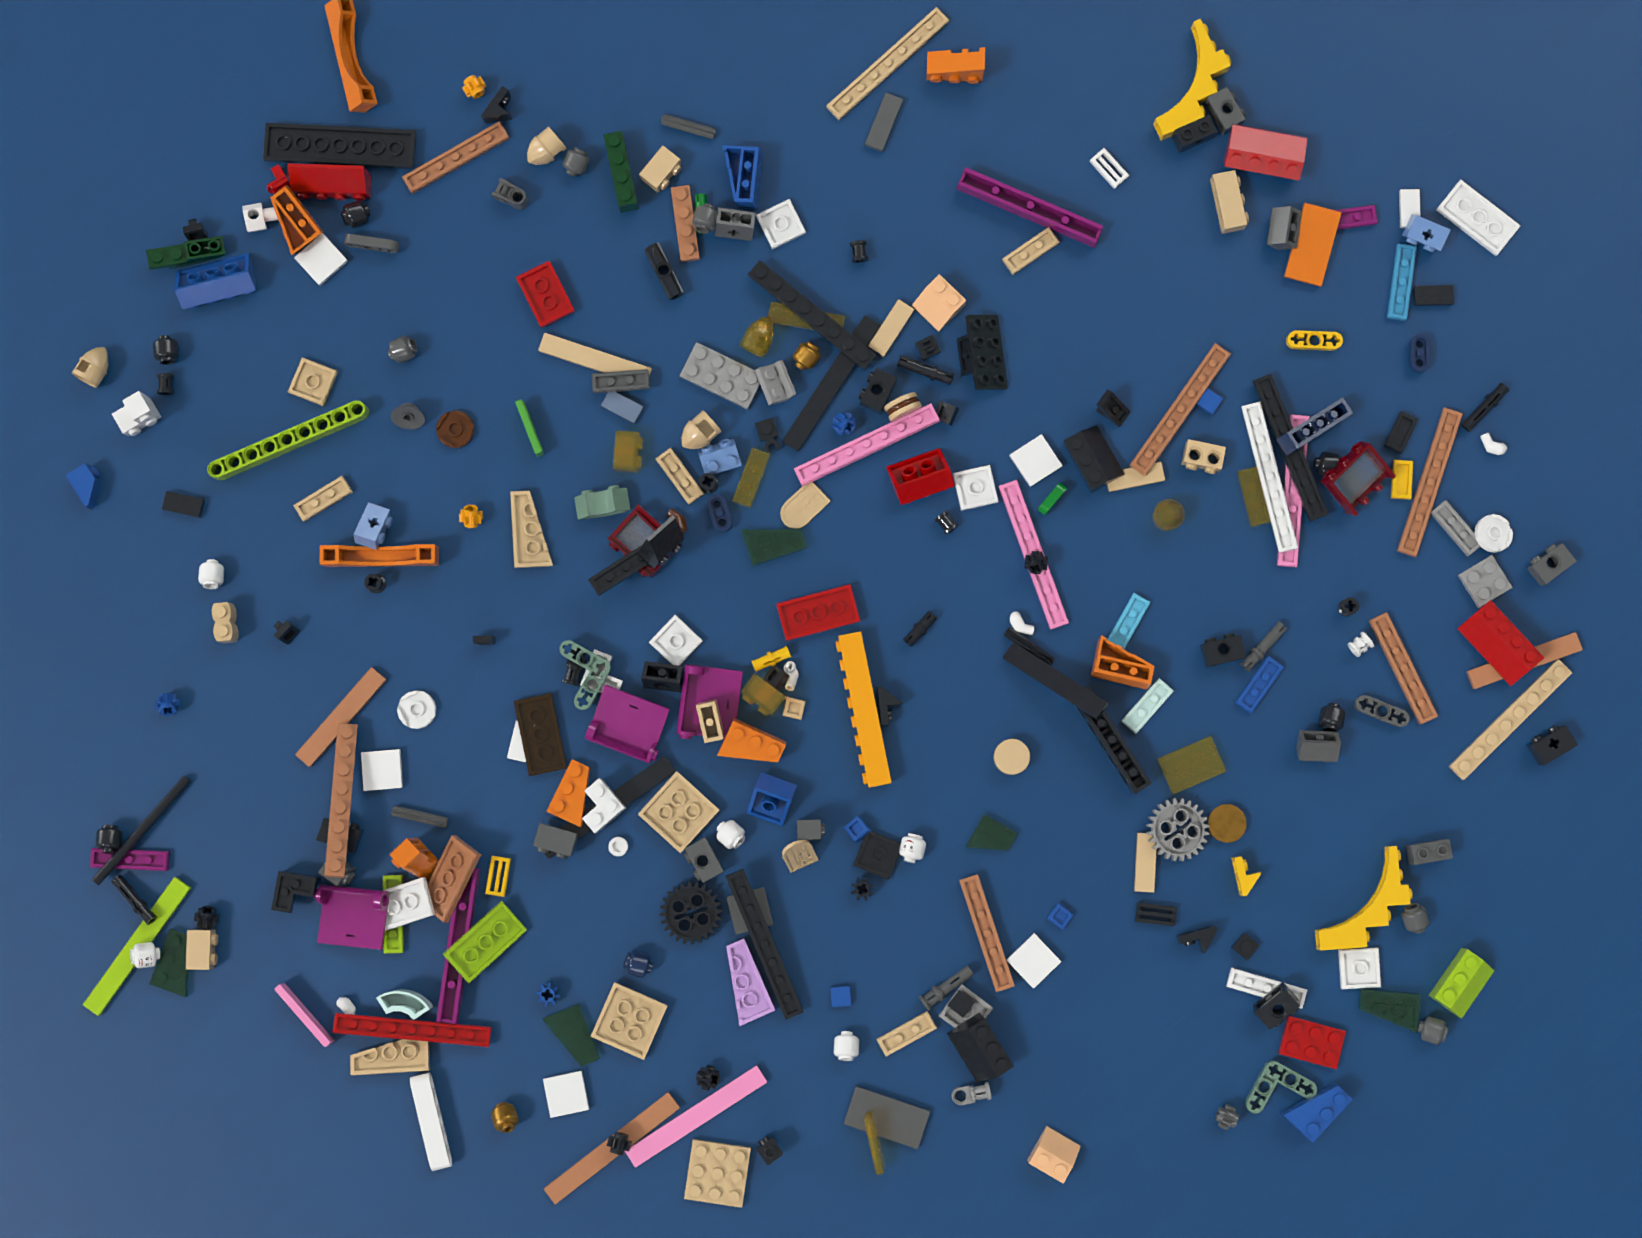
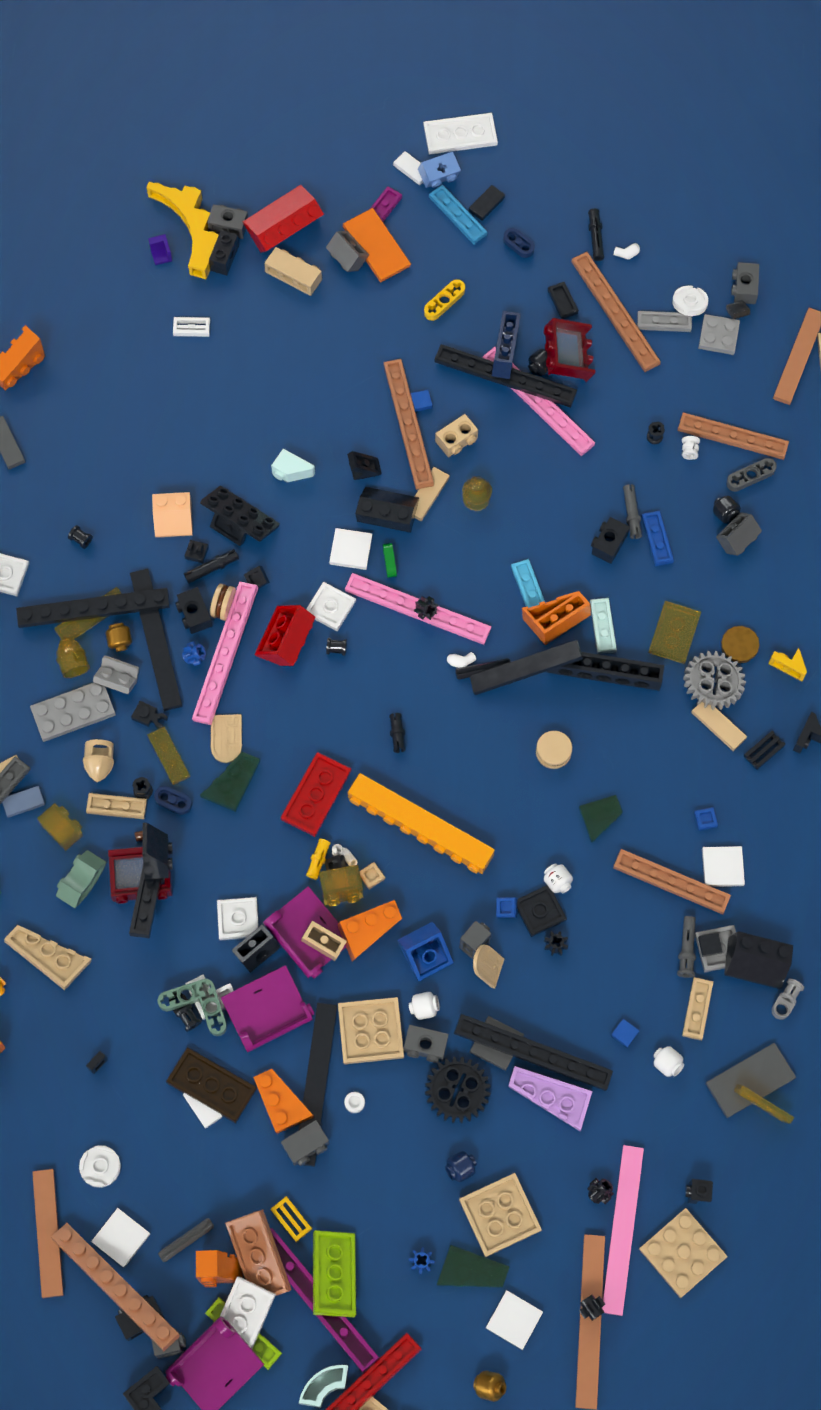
camera: 55 degrees left, 15 degrees down
(607, 806) = (315, 1078): white brick -> none
(719, 457) = (131, 763): medium blue bracket -> none
(886, 699) = (428, 802): black slope -> none
(891, 328) = (157, 563): tan tile -> none
(1029, 207) = (165, 398): magenta tile -> none
(1030, 251) = (197, 425): tan tile -> none
(1059, 355) = (291, 467): none -> light aqua slope
(1151, 82) = (160, 249): none -> dark purple panel
(1253, 497) = (517, 429): clear yellow tile -> none
(1269, 477) = (514, 406): white tile -> none
(1402, 484) = (600, 329): yellow tile -> none
(1500, 643) = (773, 357): red slope -> none
(1520, 578) = (738, 309): none -> clear smoke tile

